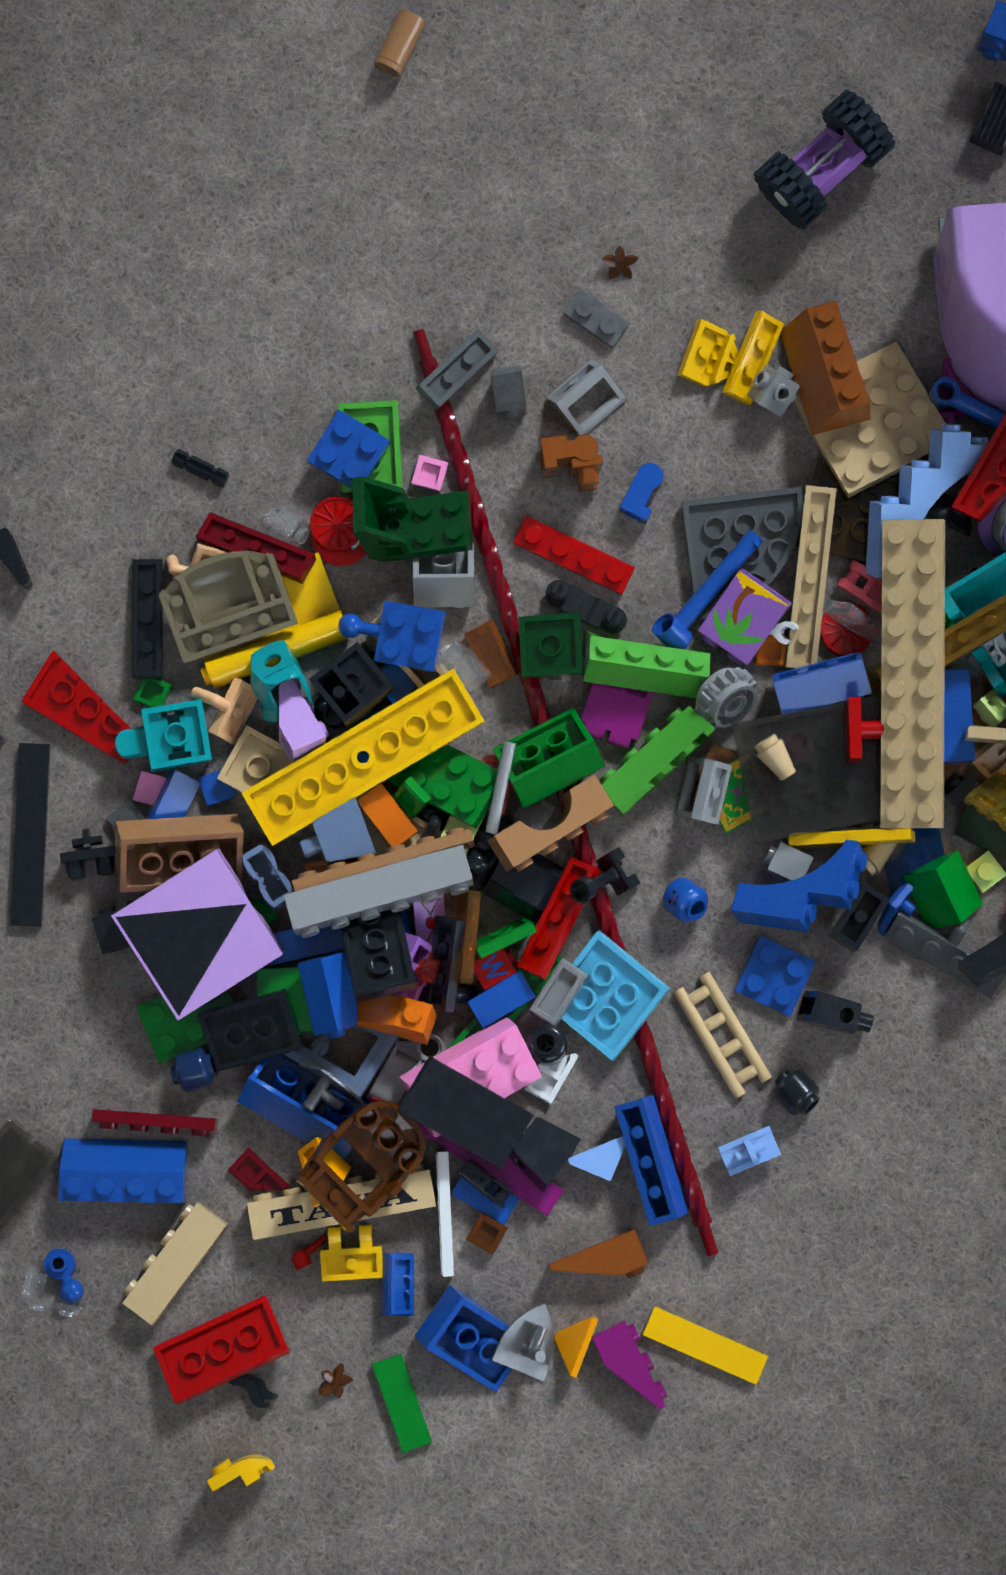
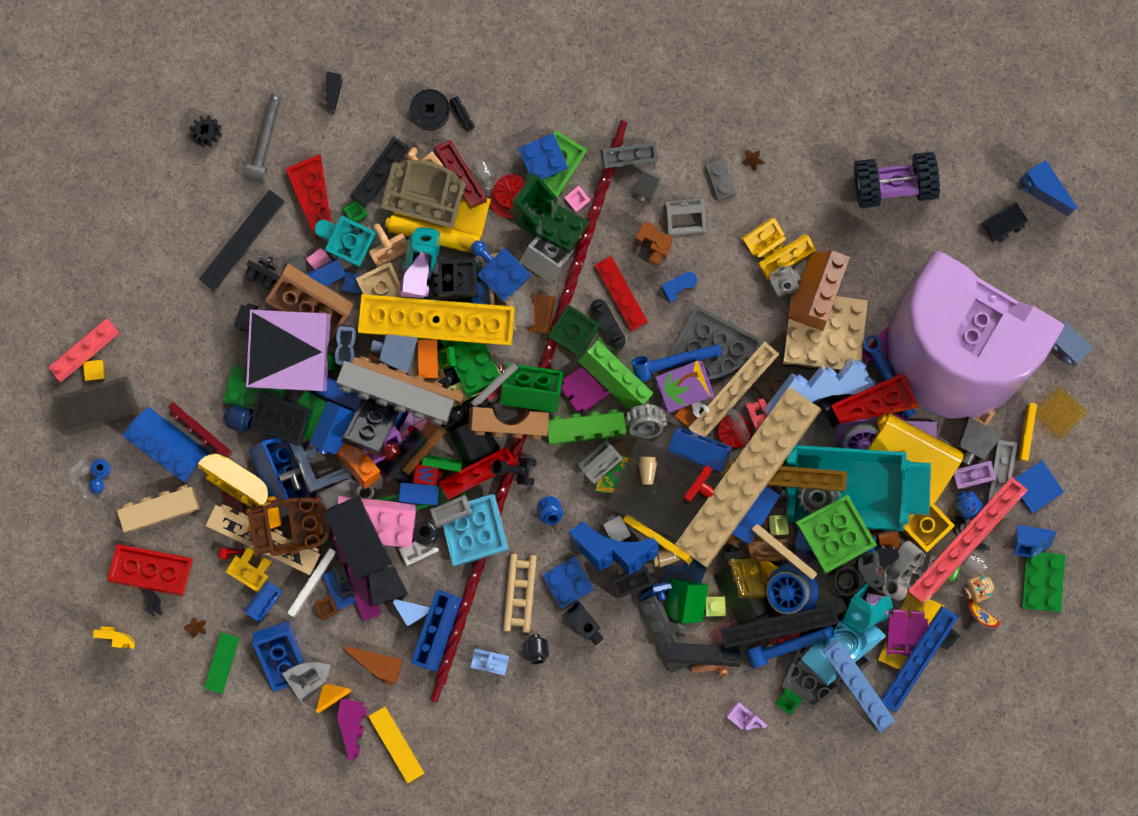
camera: 35 degrees right, 0 degrees up
(145, 477) = (430, 98): none -> black wheel
(247, 1153) = (234, 479): none -> yellow brick

